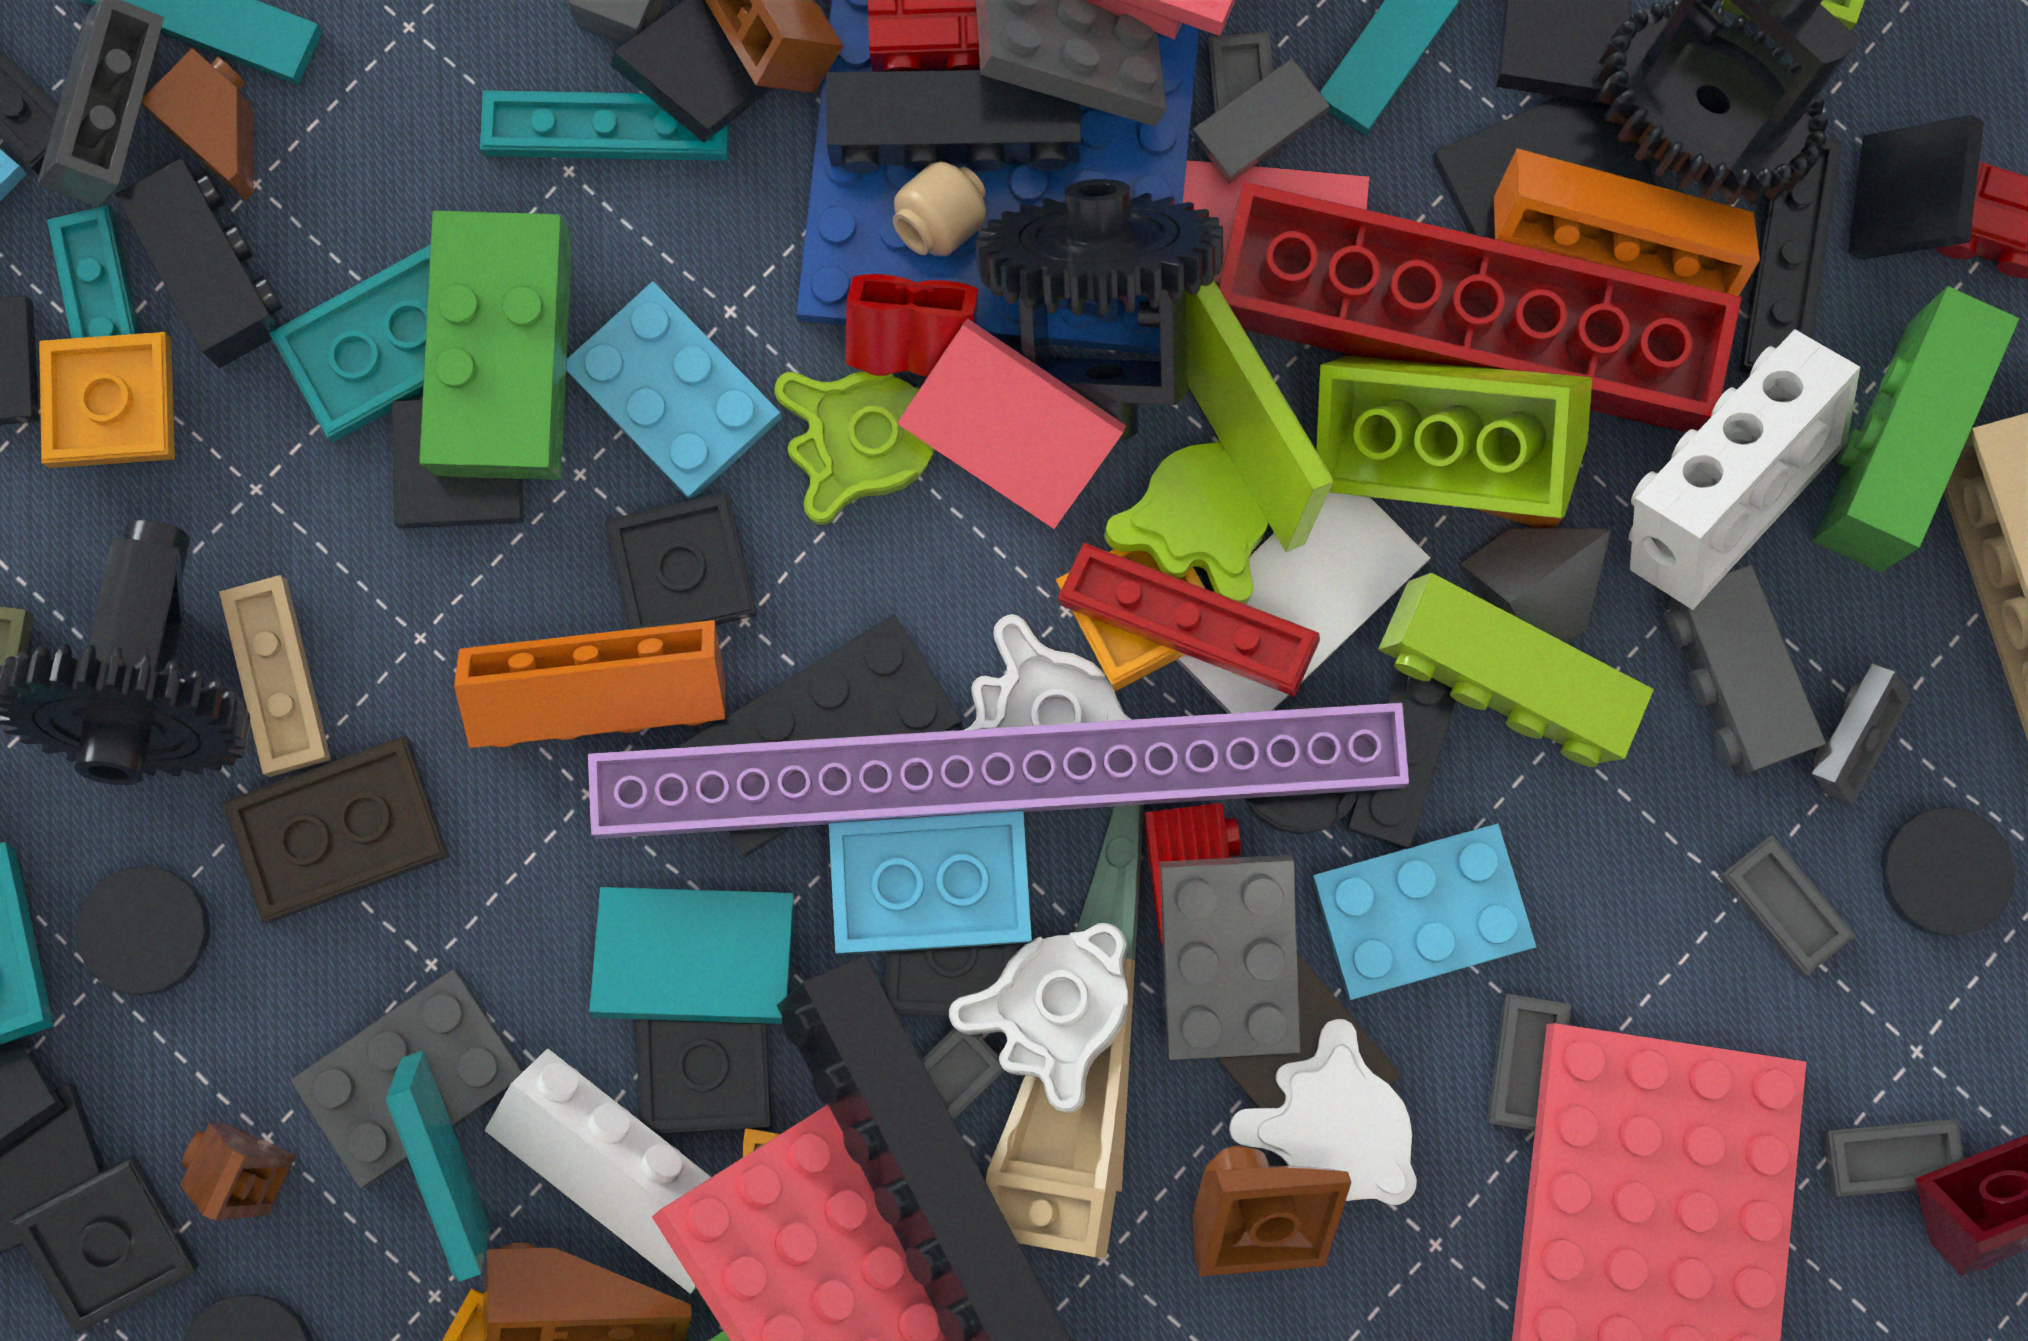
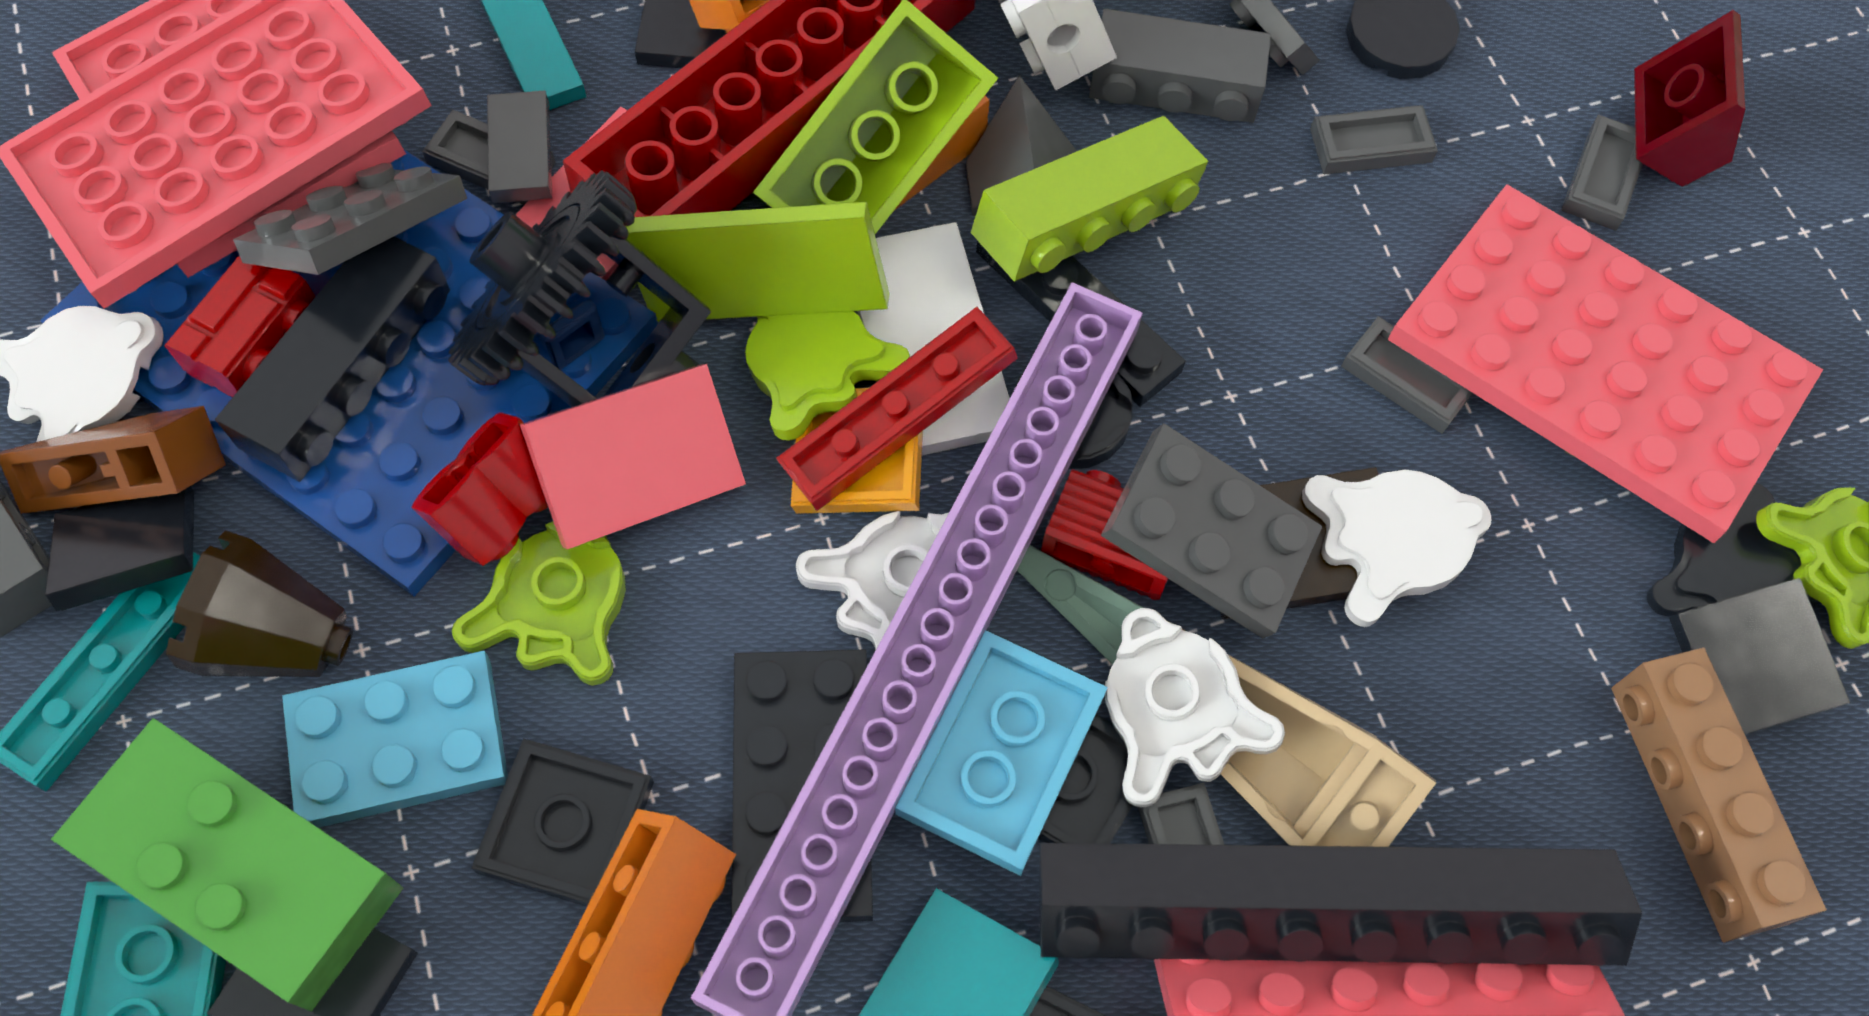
camera: 65 degrees left, 15 degrees down
(697, 221) = (255, 617): none -> dark brown cone
(939, 209) = (406, 405): tan head -> none
(1264, 1215) = (1451, 629): dark orange slope -> none
(1423, 912) = (1245, 382): medium azure plate -> none

